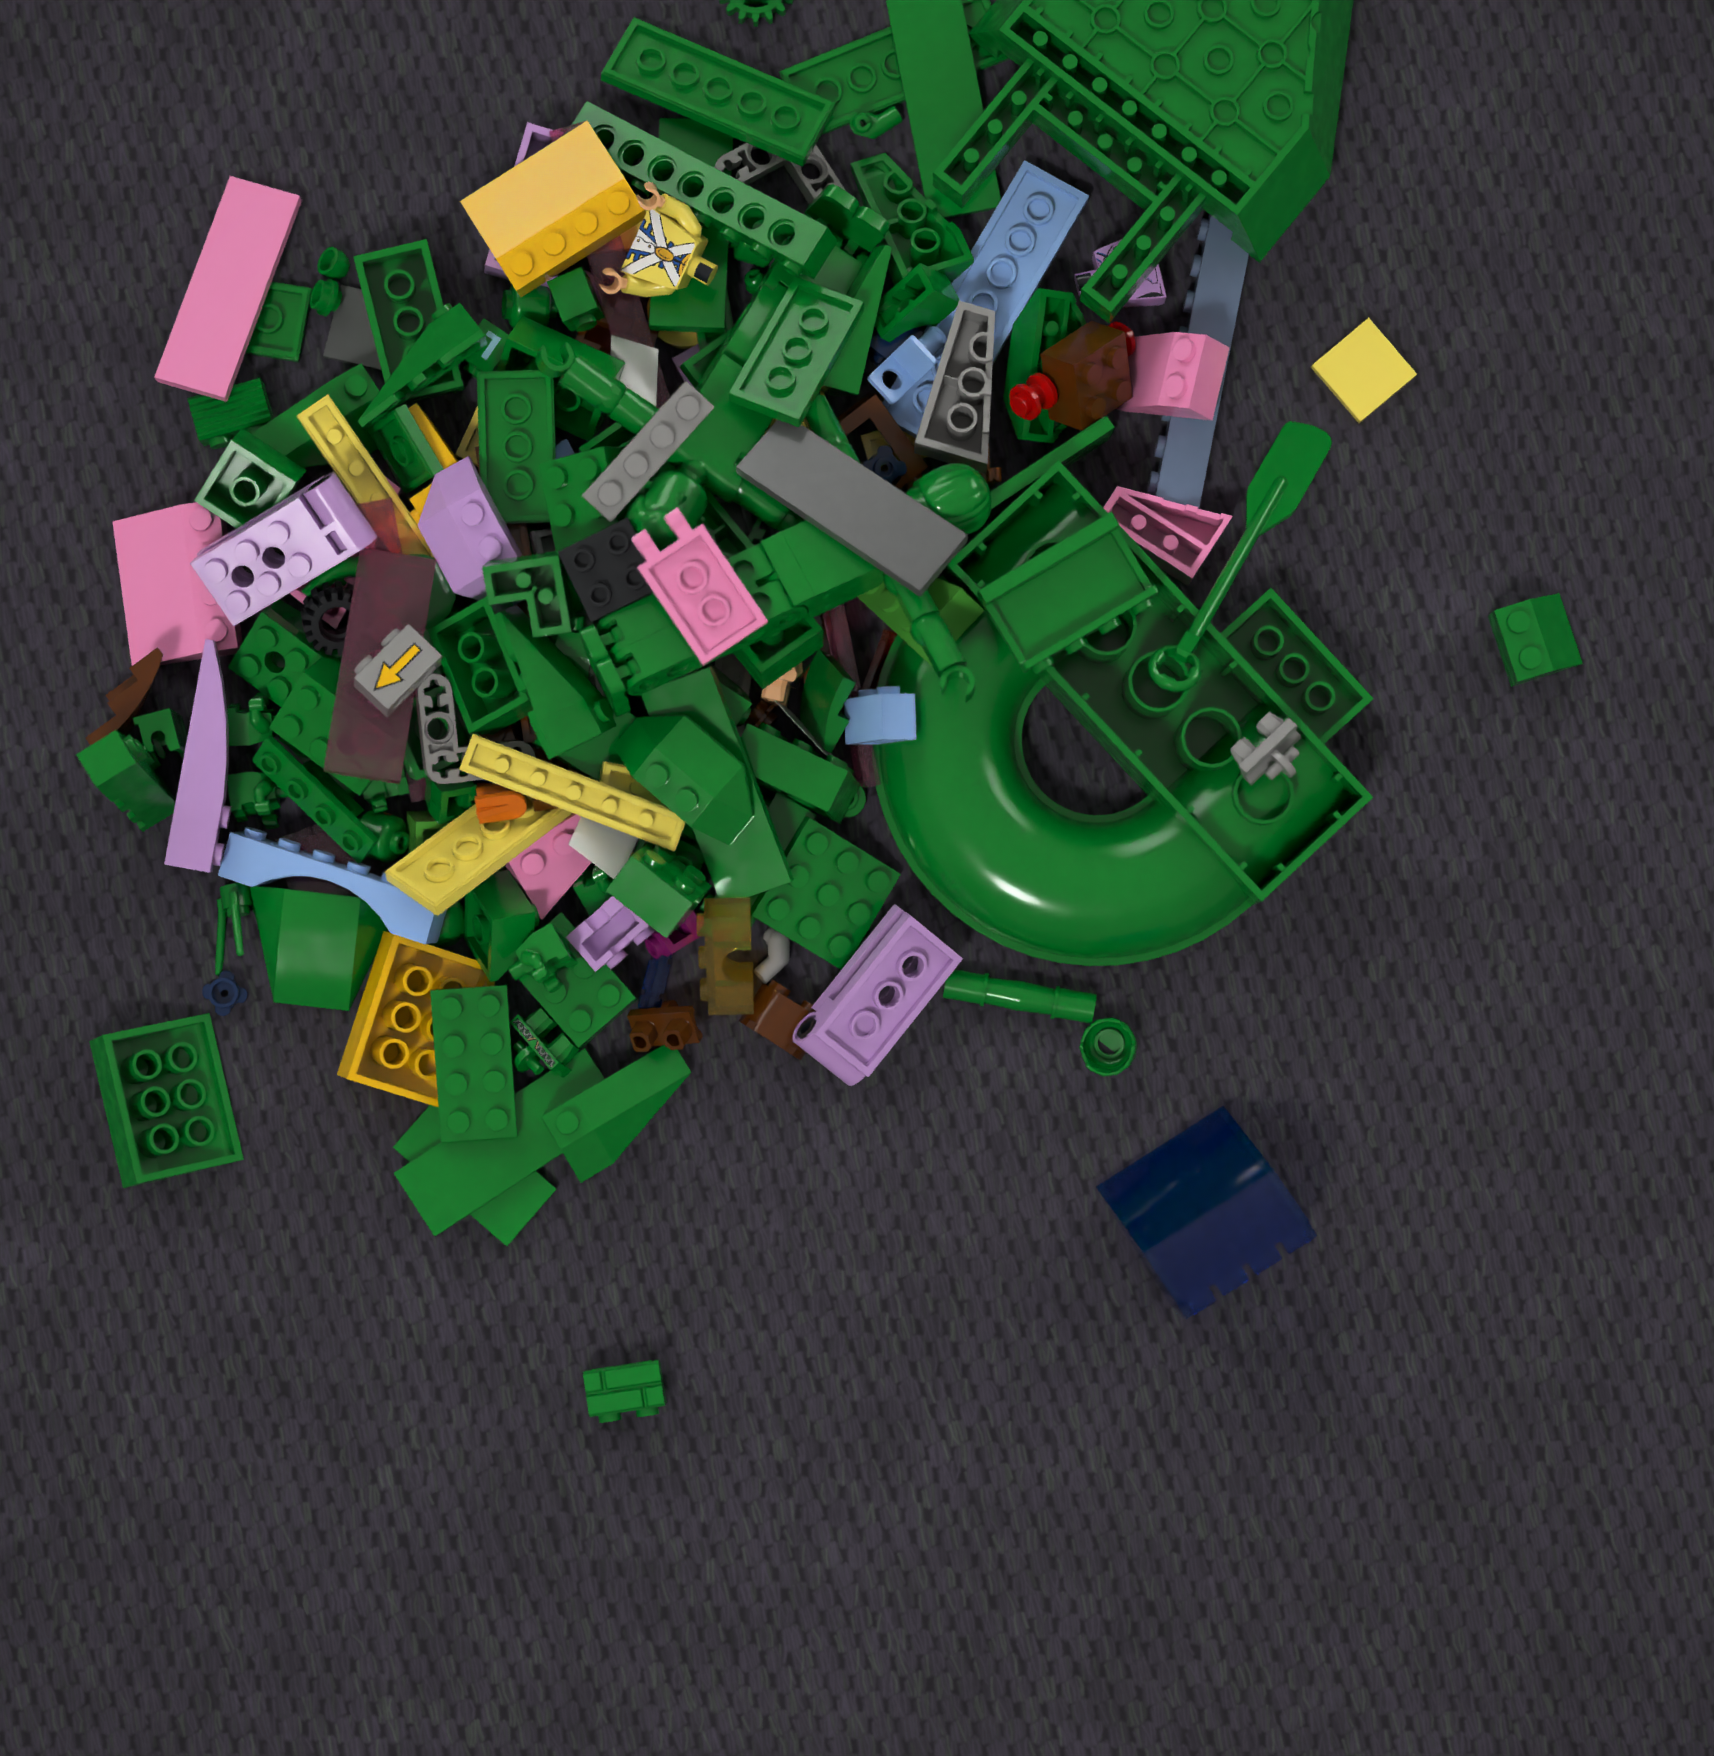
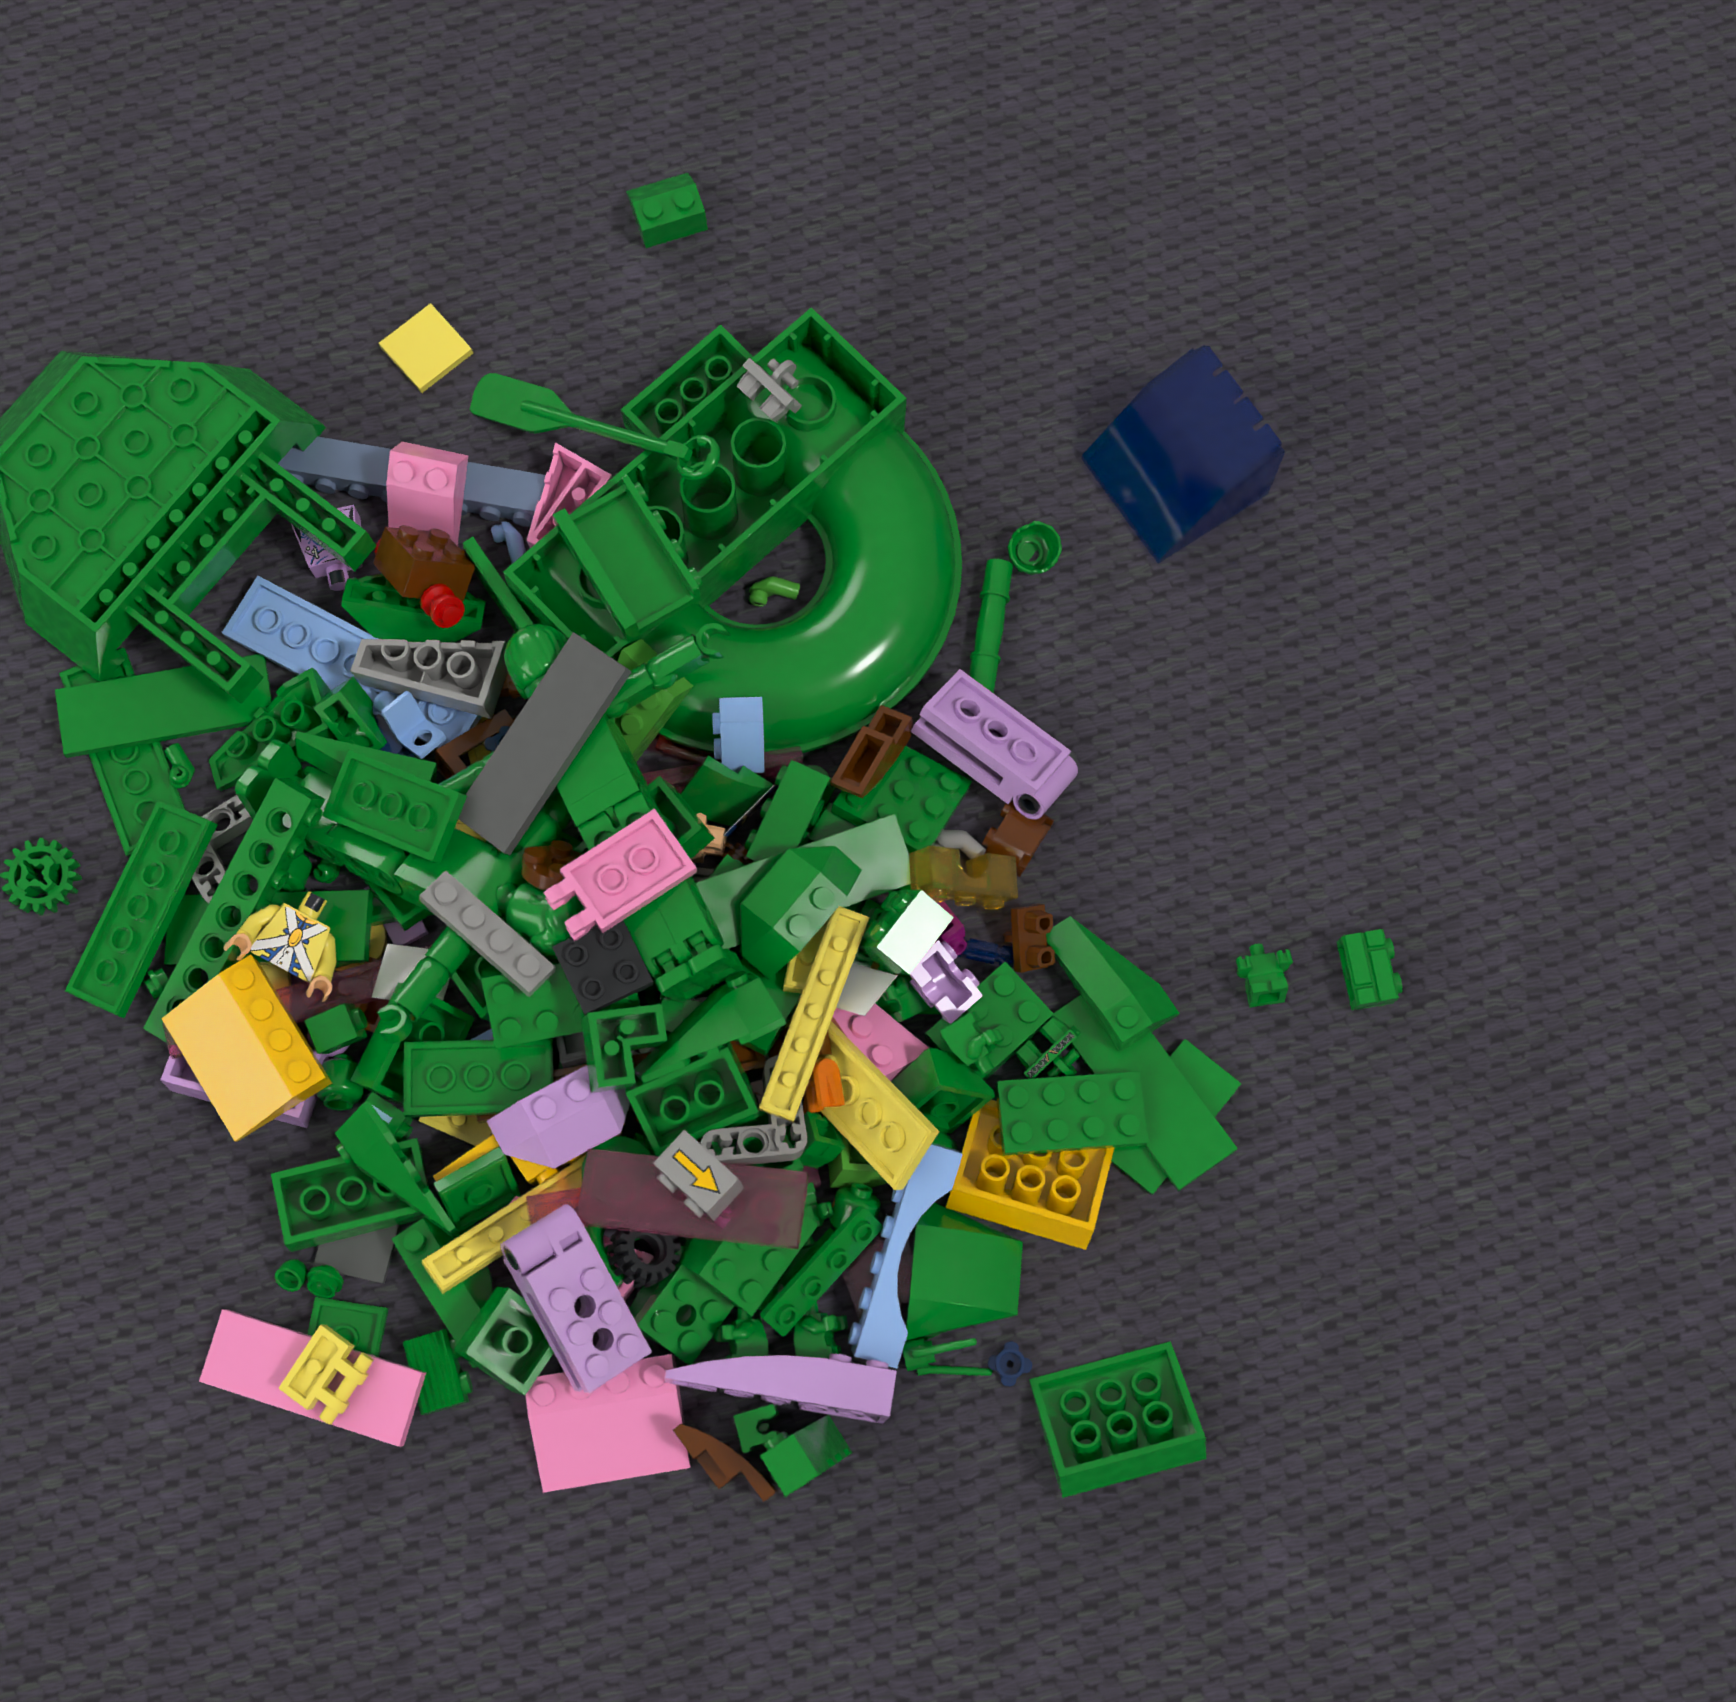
camera: 90 degrees left, 10 degrees down
(231, 292) = (317, 1367): none -> light yellow plate
(622, 1276) = (1264, 975): none -> green piece
(638, 113) = (156, 982): none -> green plate
(735, 515) = (543, 863): none -> reddish brown plate
(864, 861) = (873, 752): none -> reddish brown slope
(1071, 758) = (772, 586): none -> bright green arm
(1128, 473) = (513, 539): none -> light blue arm

